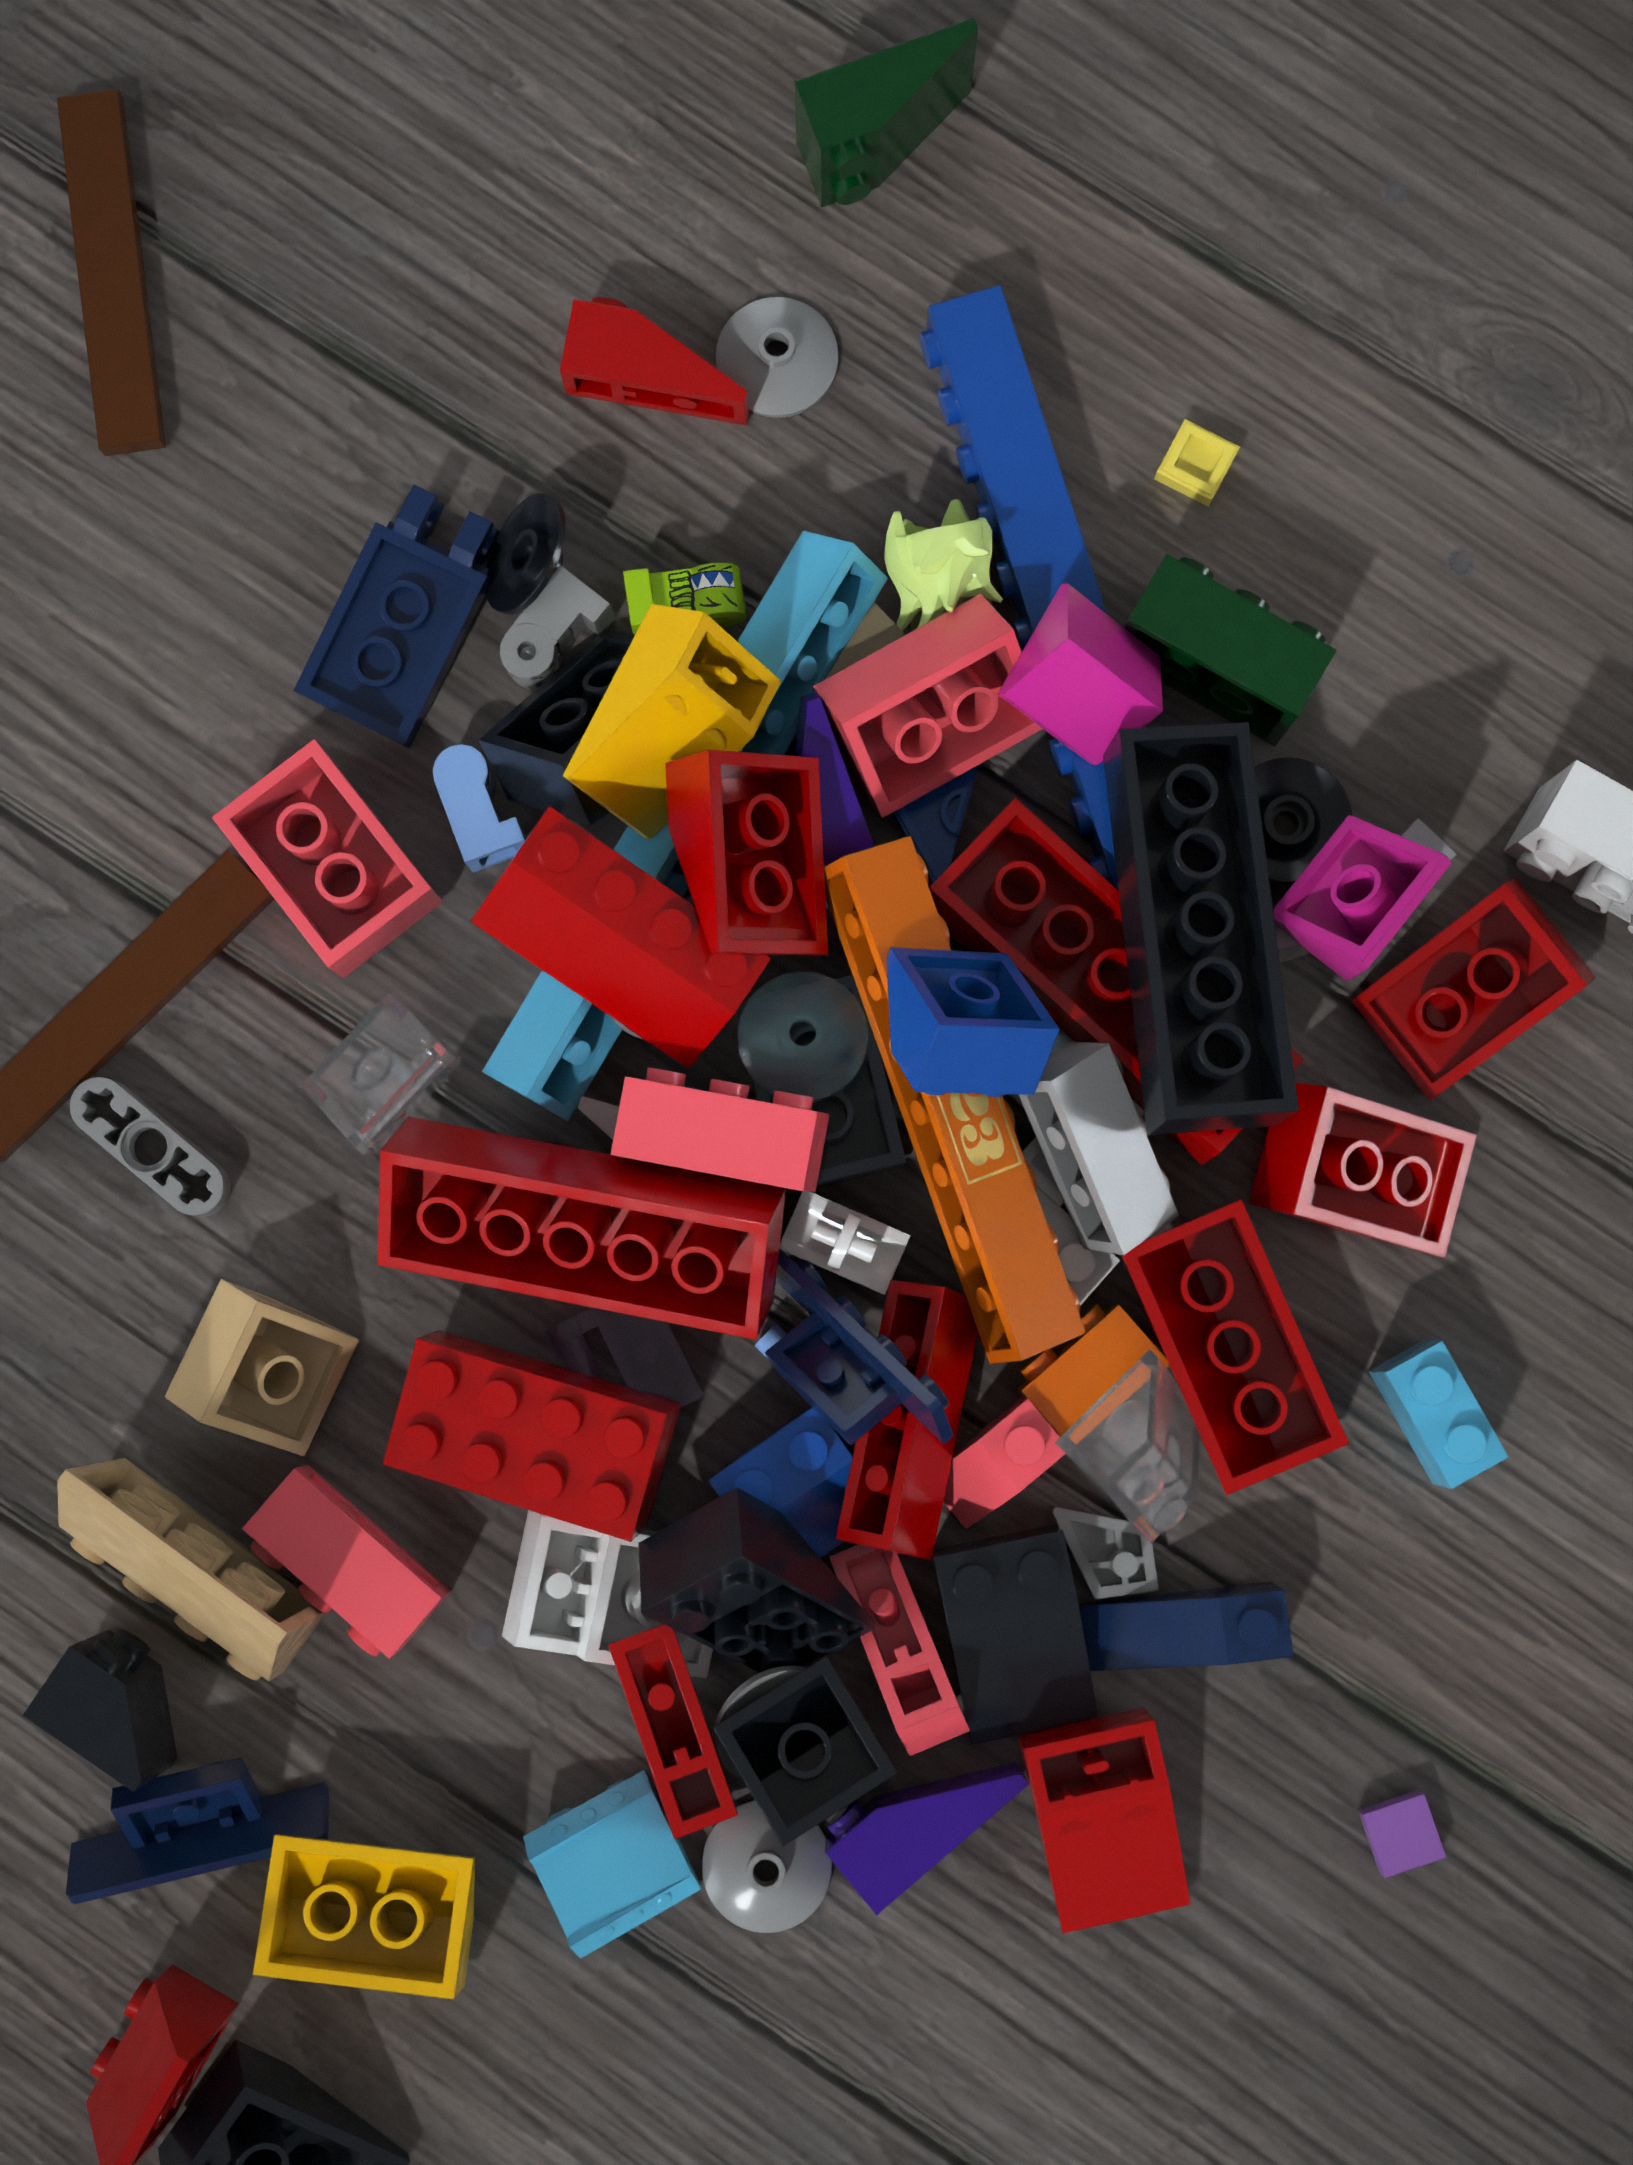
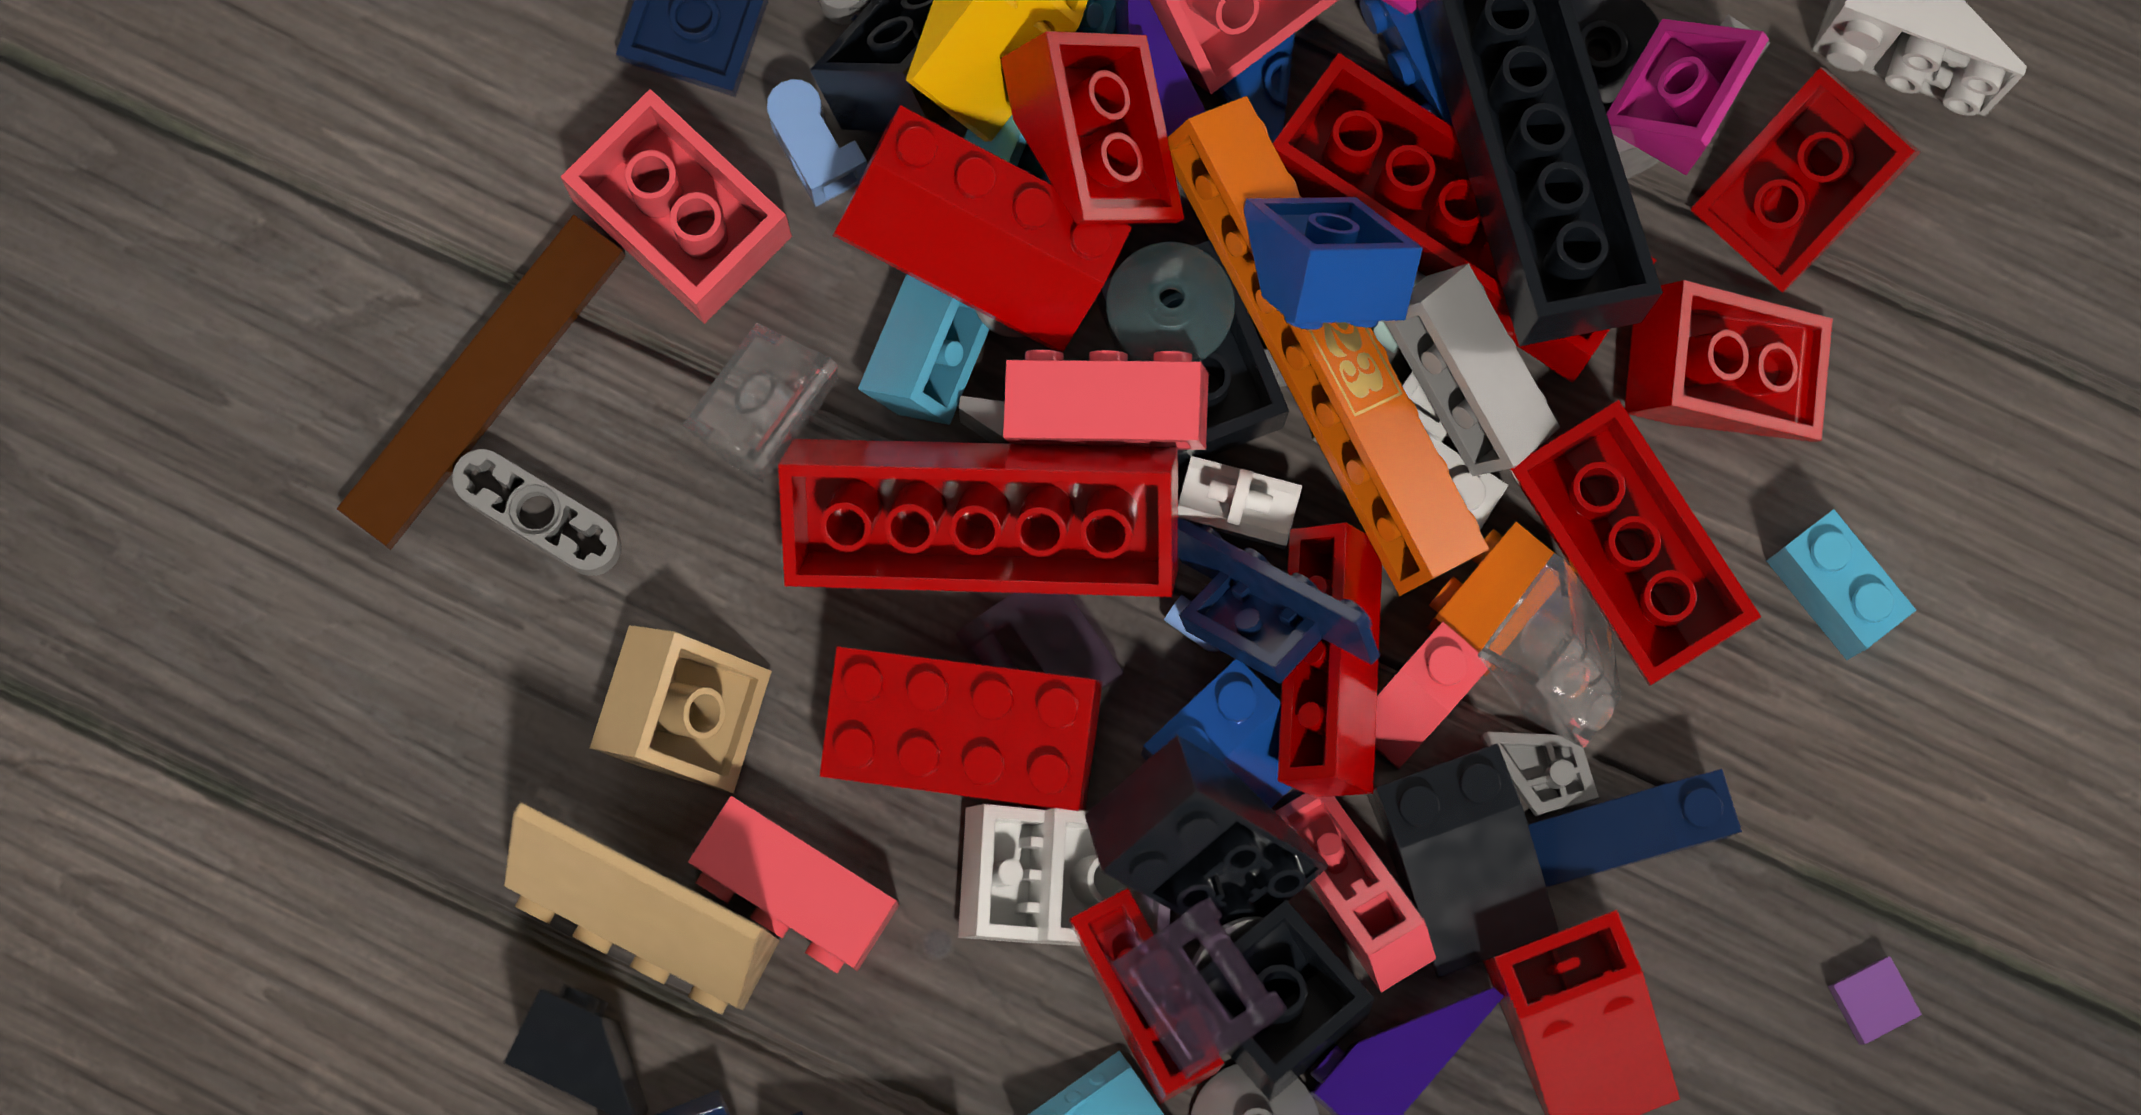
camera: 15 degrees left, 5 degrees down
(701, 1749) = (1180, 1001): none -> clear purple plate

